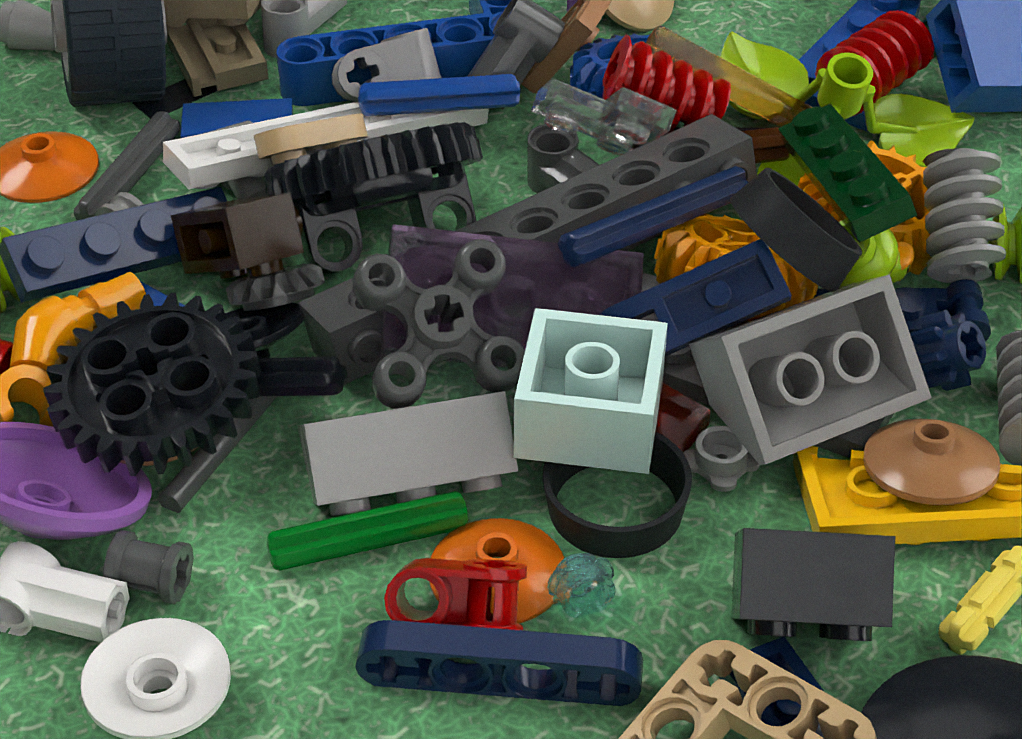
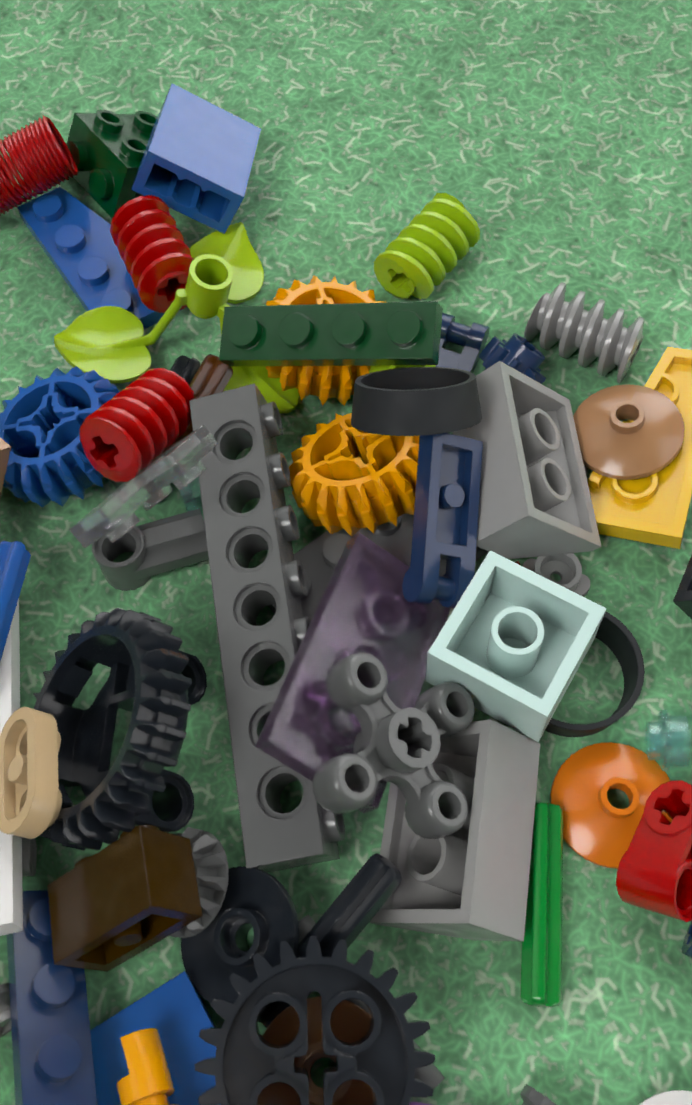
camera: 65 degrees left, 20 degrees up
(650, 217) = (330, 507): dark blue axle -> none
(746, 89) = (157, 352): clear orange axle -> none
(959, 214) = (400, 273): light grey piece -> none

